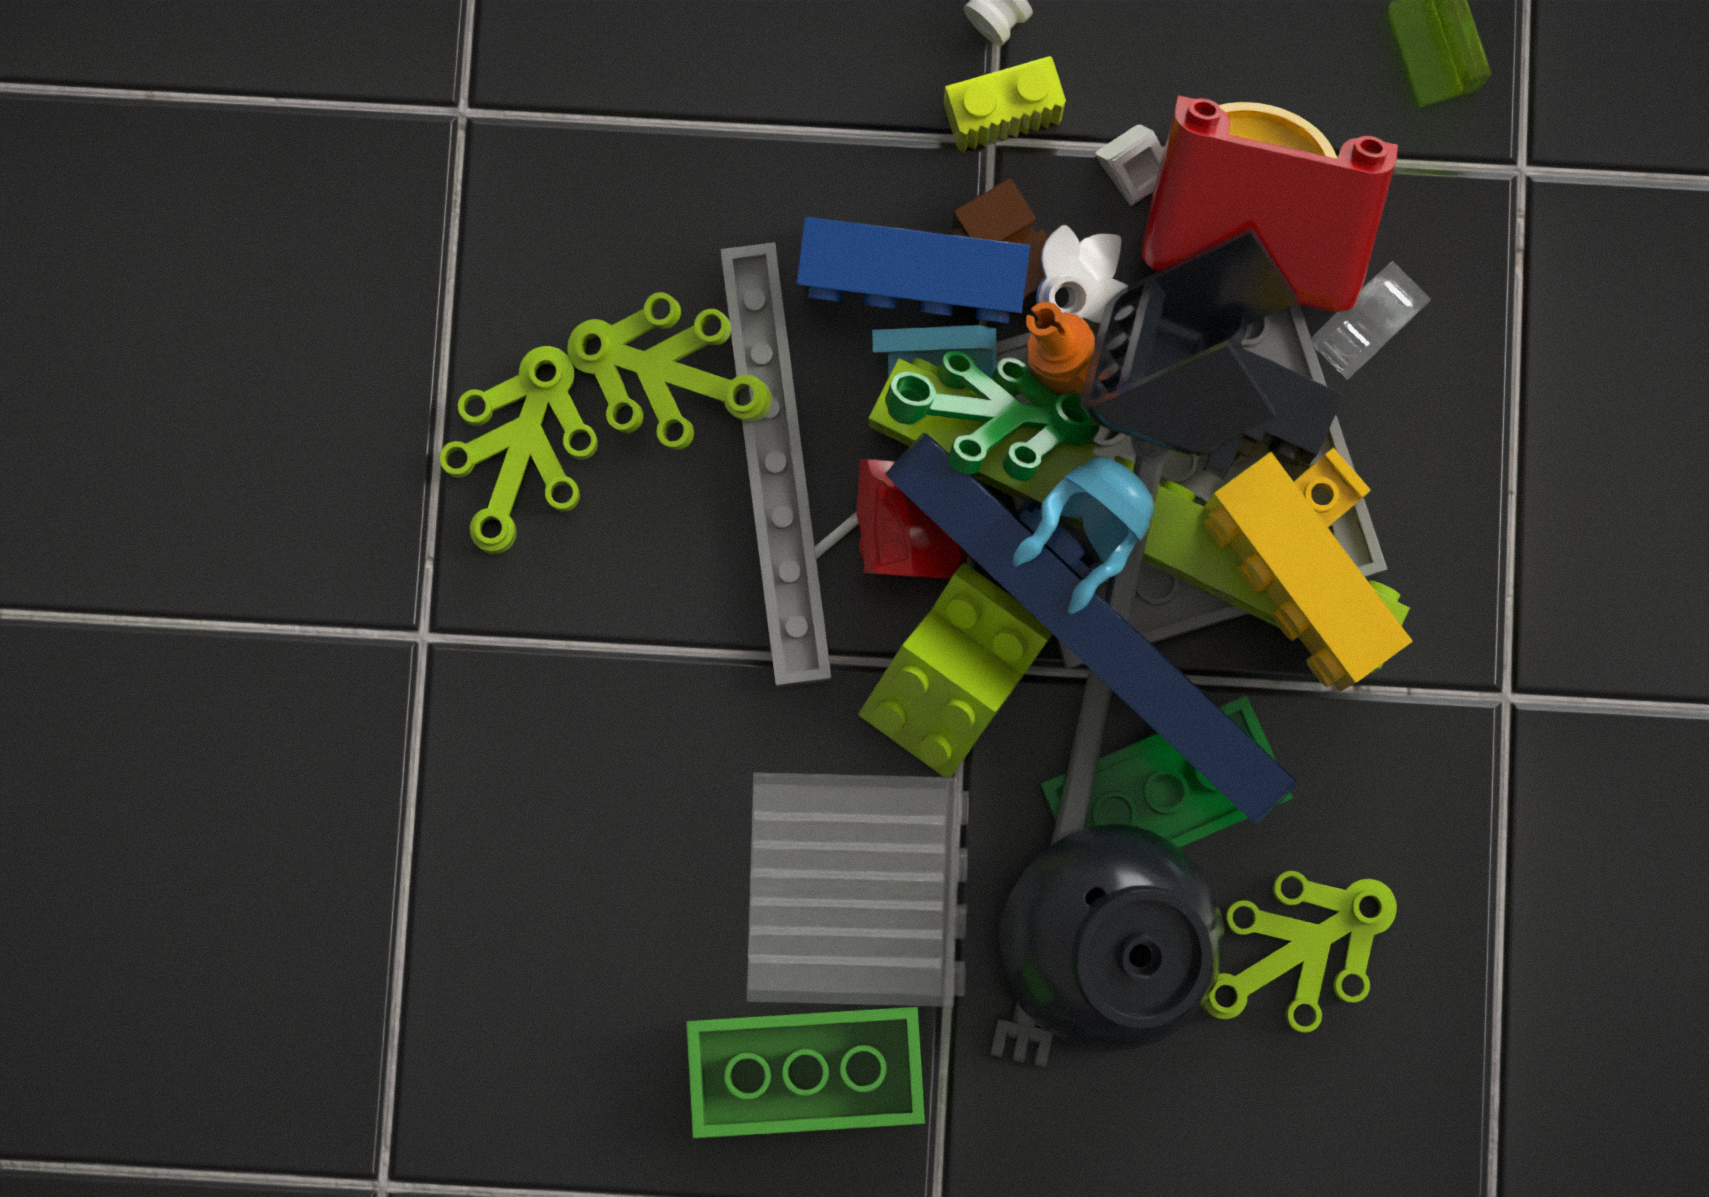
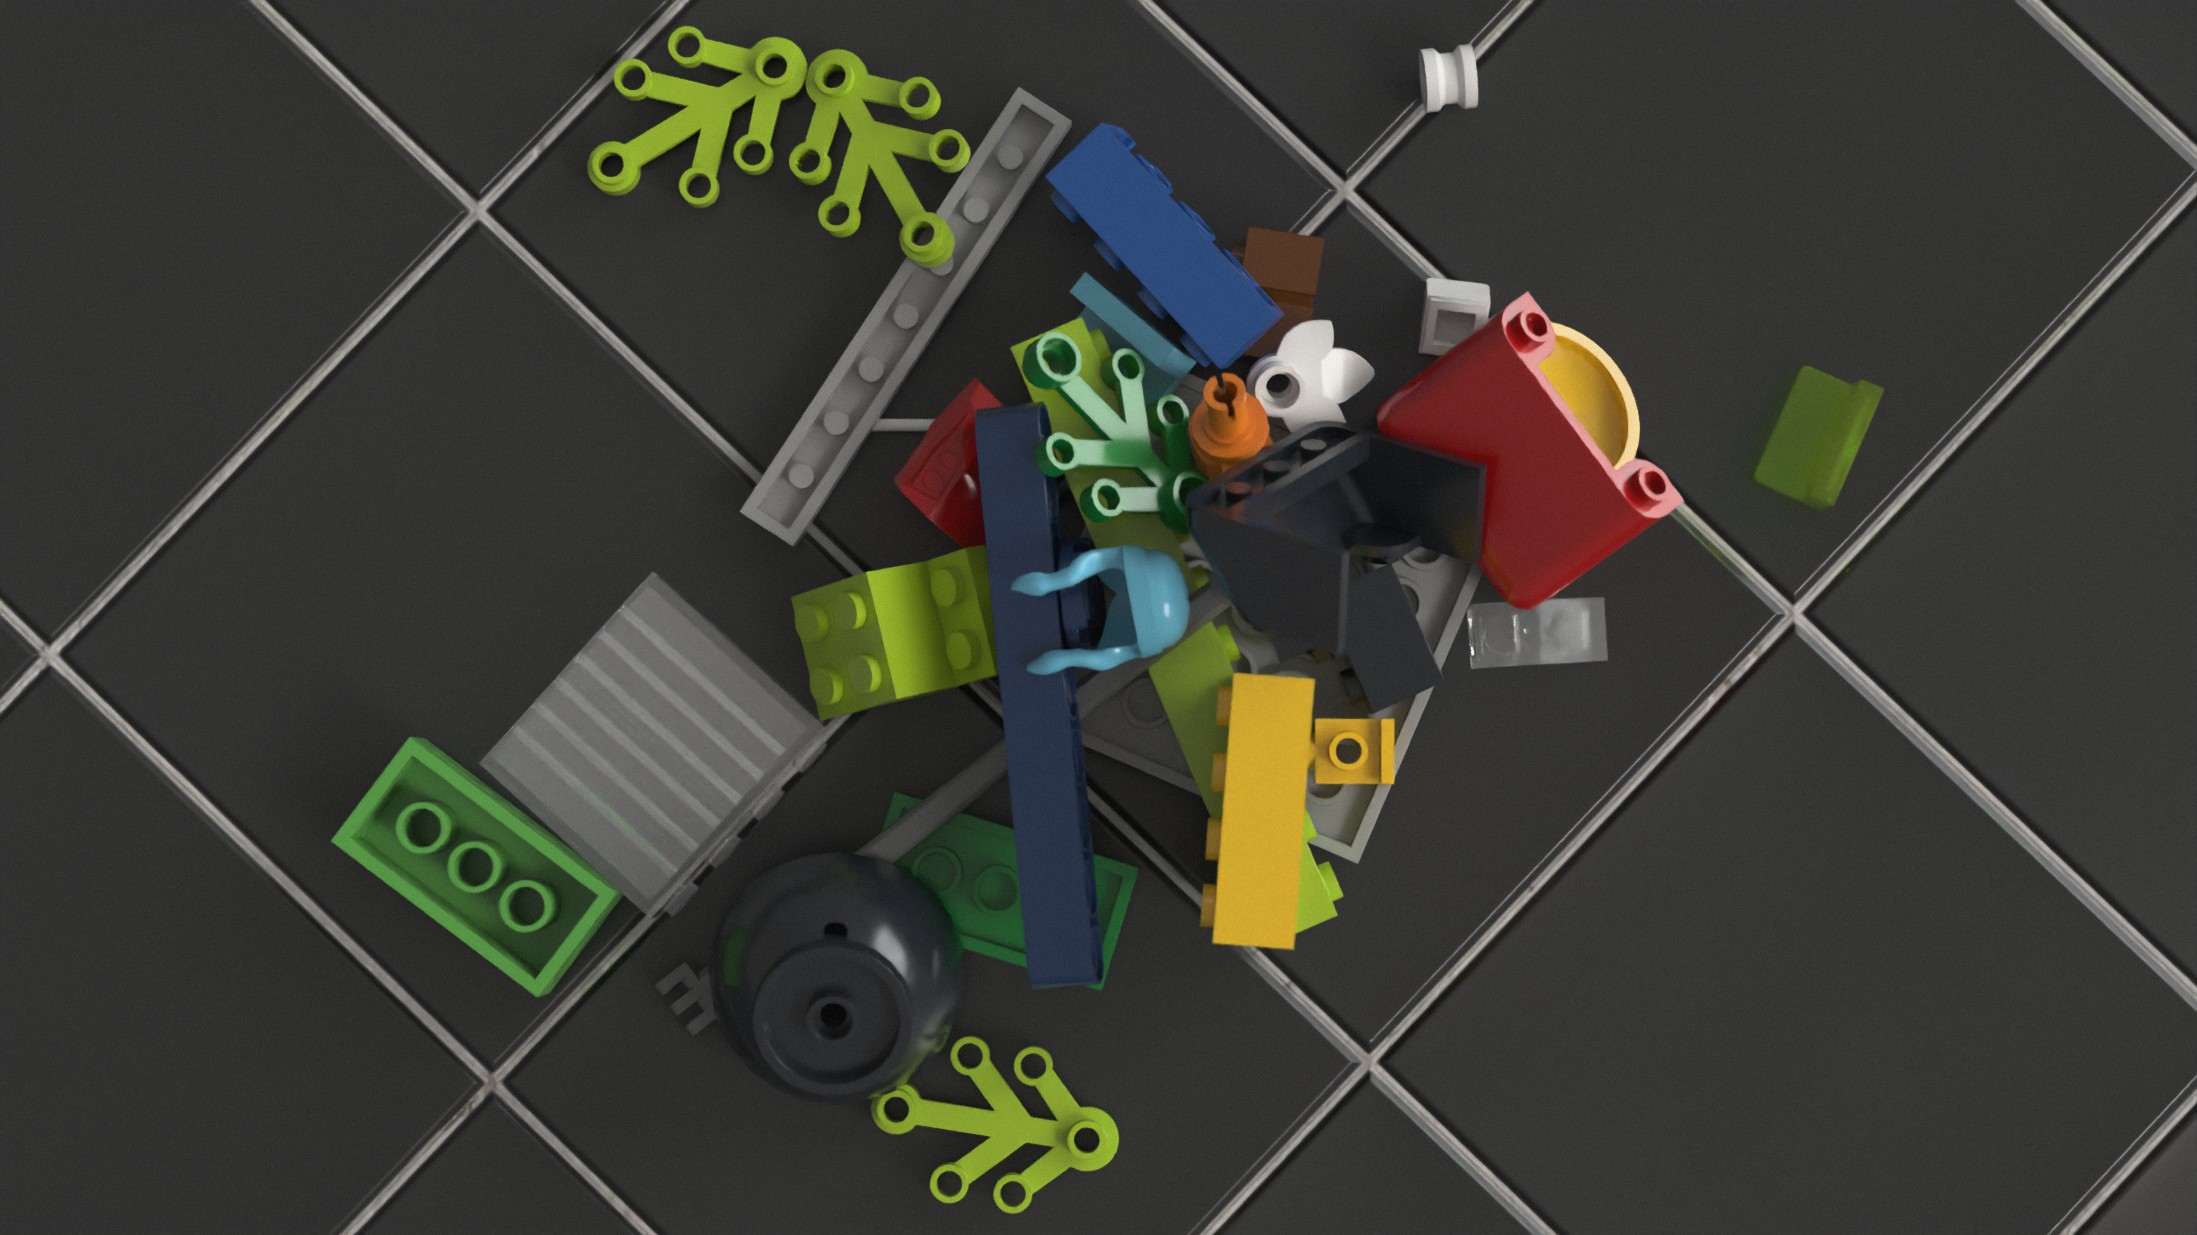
camera: 45 degrees right, 5 degrees up
(1004, 103) = (1380, 167): neon yellow brick -> none

